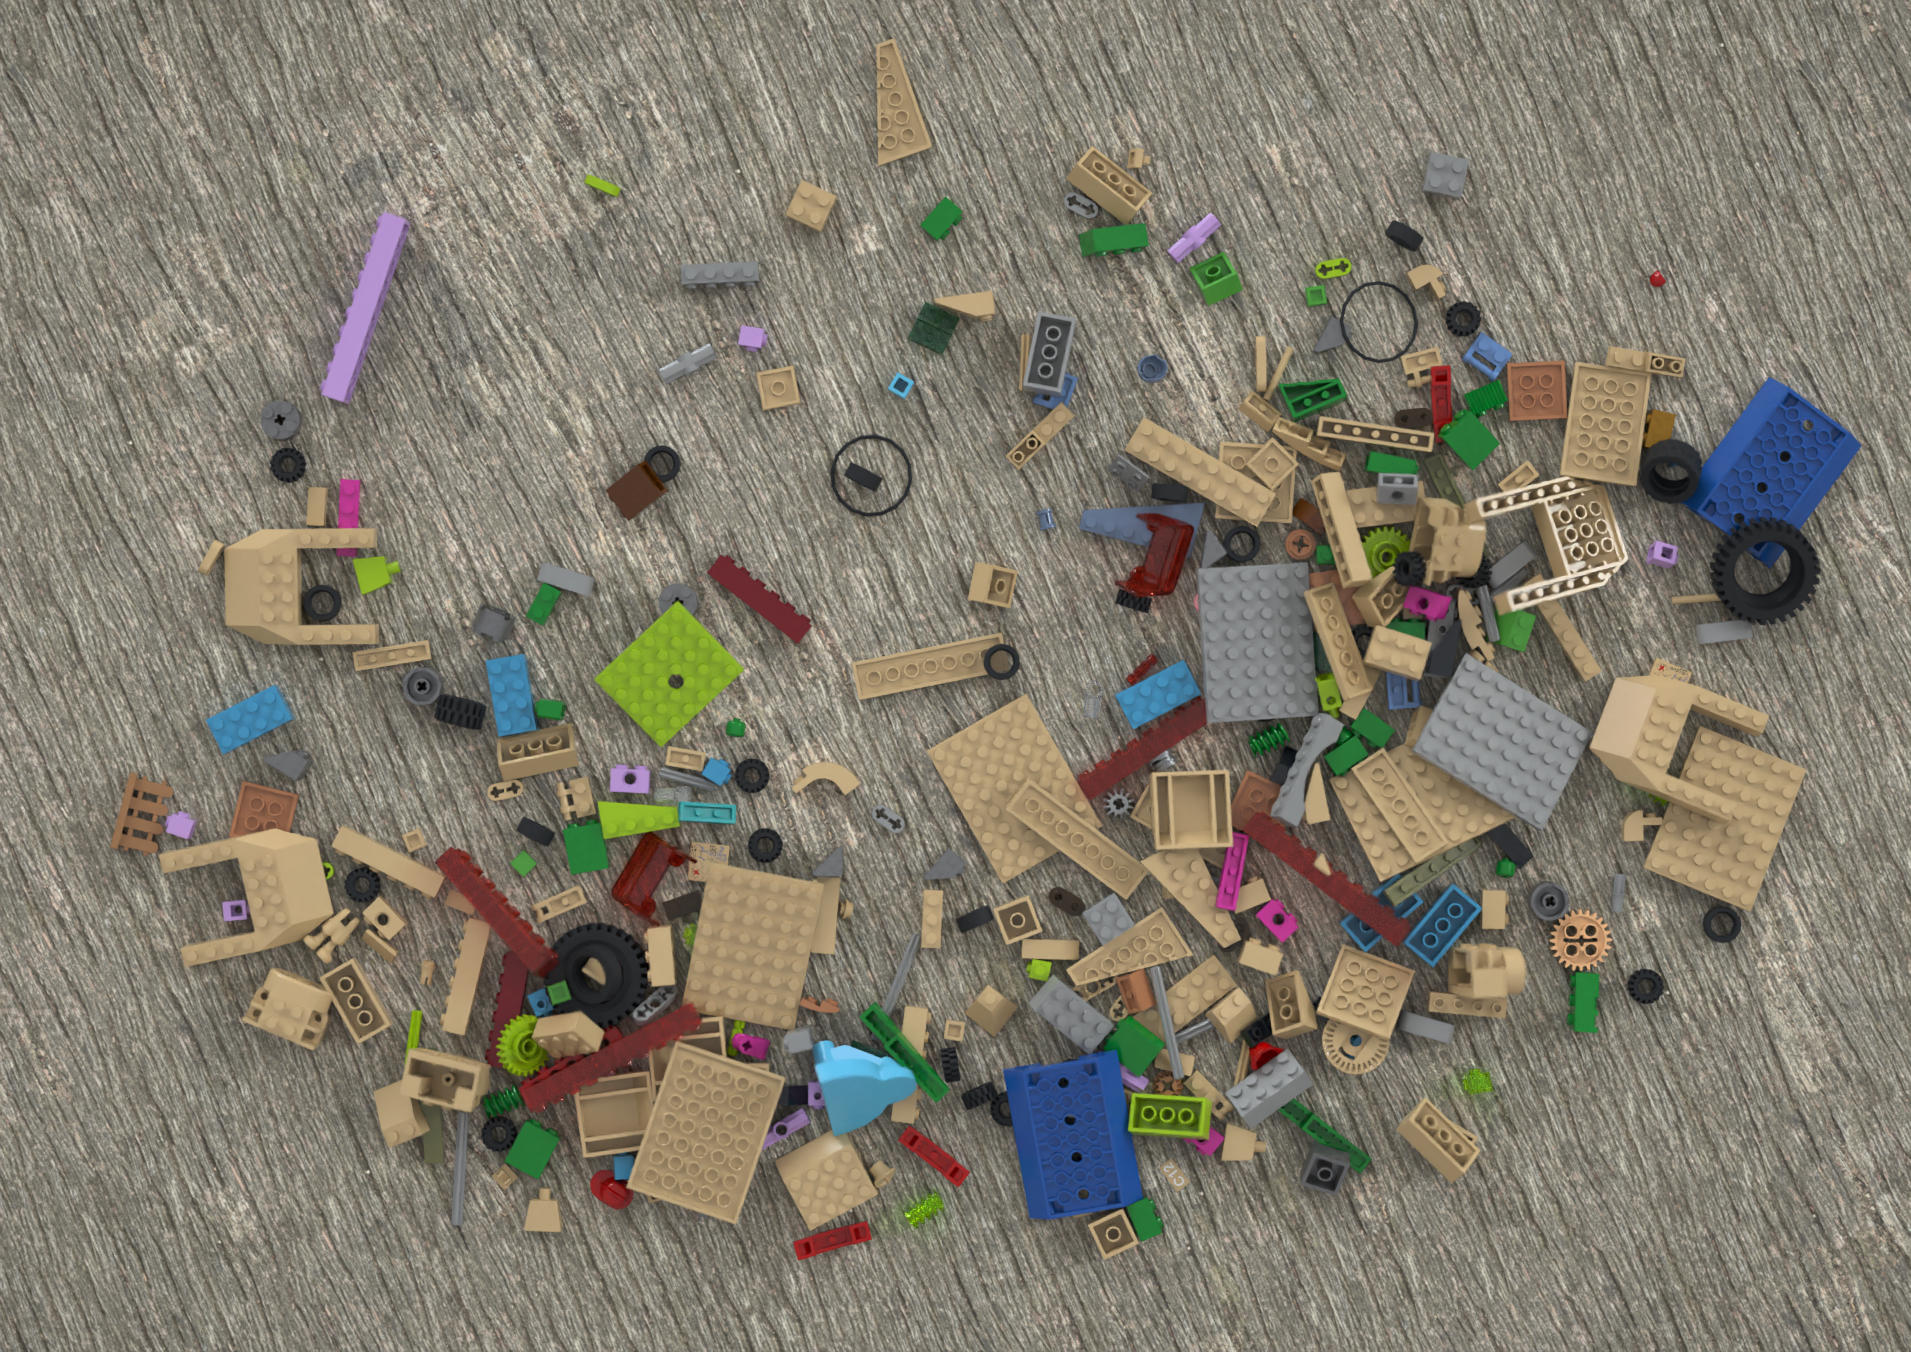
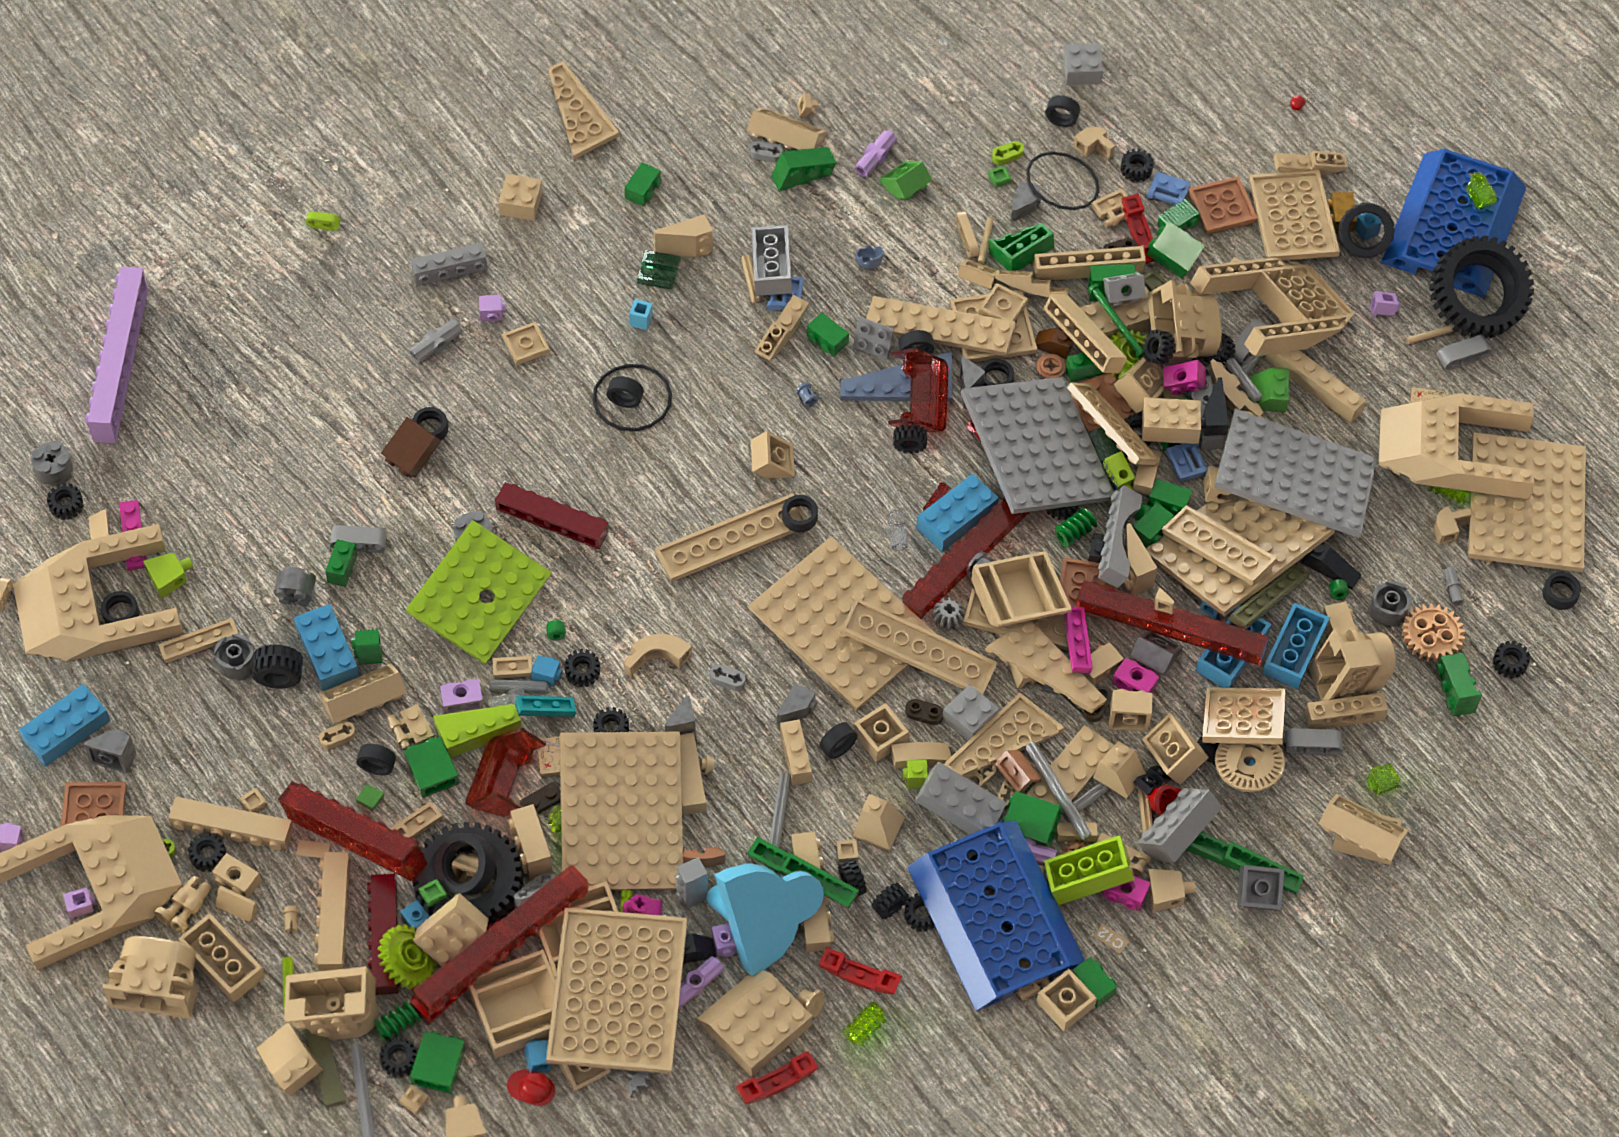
camera: 20 degrees left, 30 degrees down
(1084, 452) = (827, 334): none -> green brick
(1303, 897) = (1155, 652): none -> flat silver slope
(1379, 519) = (1116, 319): none -> green bar
(1805, 459) = (1481, 191): none -> clear neon green piece

